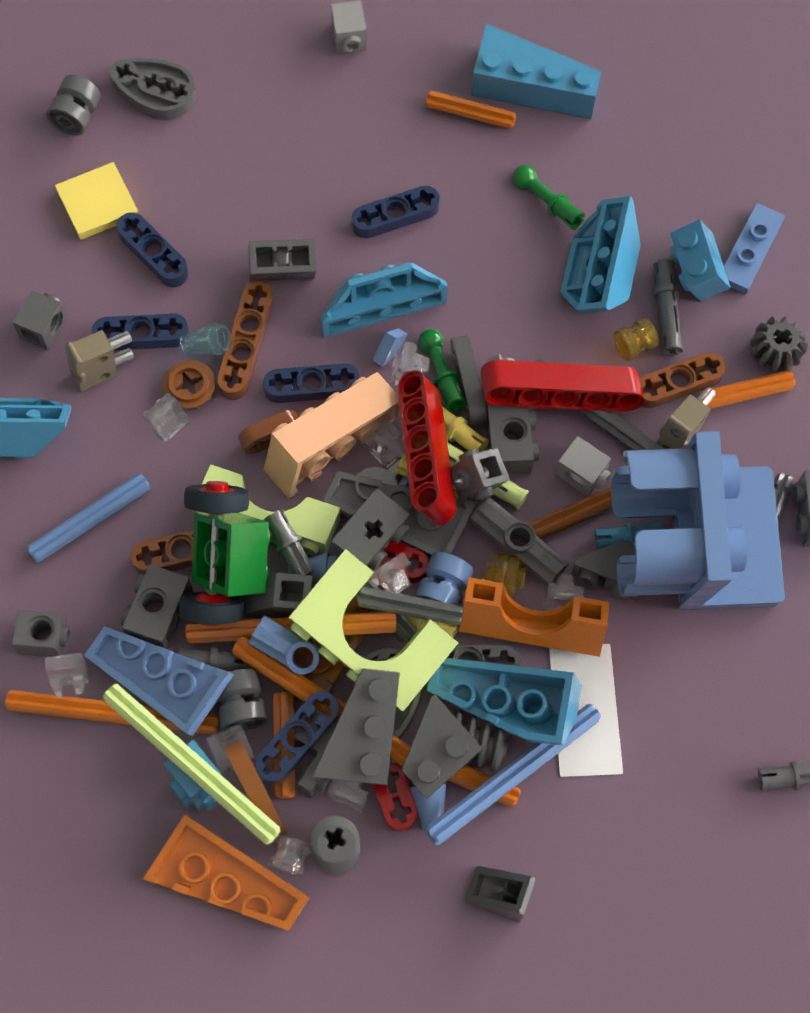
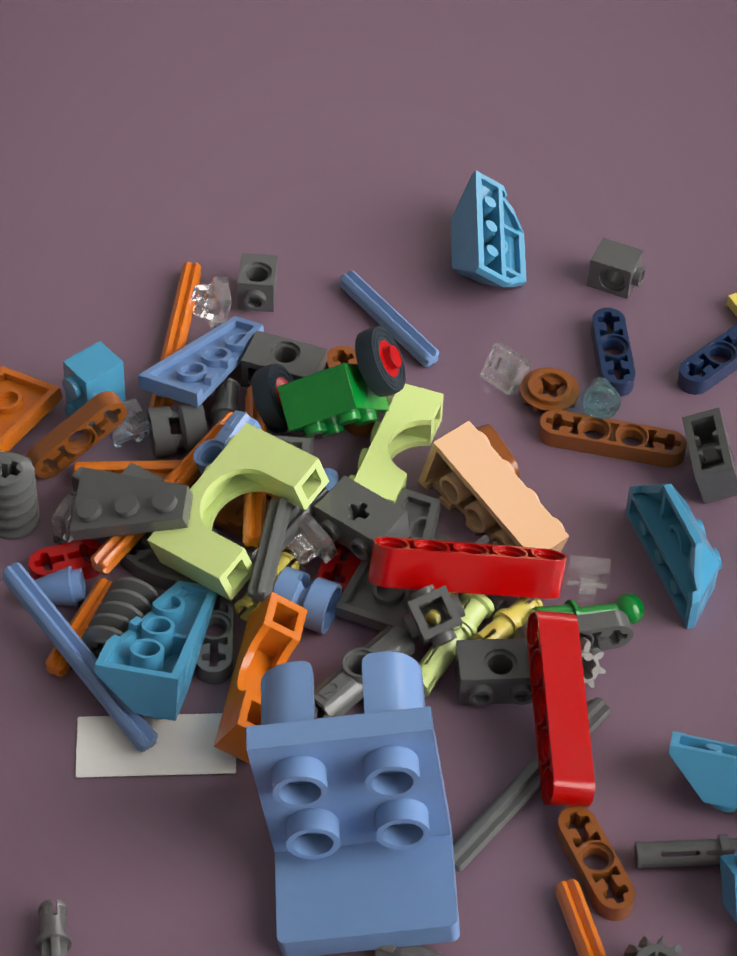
camera: 90 degrees right, 20 degrees down
(93, 358) = (566, 304): dark tan piece -> none
(191, 764) = (93, 355): yellowish green axle -> none
(286, 375) = (565, 482): dark blue beam -> none
(288, 543) = (351, 451): flat silver axle -> none
(295, 721) = (120, 446): dark blue beam -> none
(389, 345) = (622, 566): medium blue tile -> none
(438, 749) = (105, 572): dark grey wing -> none
(506, 570) = (321, 653): clear yellow gear -> none
(584, 467) = (464, 743): light grey brick -> none
(636, 338) = (650, 815): clear yellow wheel -> none
(685, 421) = (518, 843): dark tan piece -> none

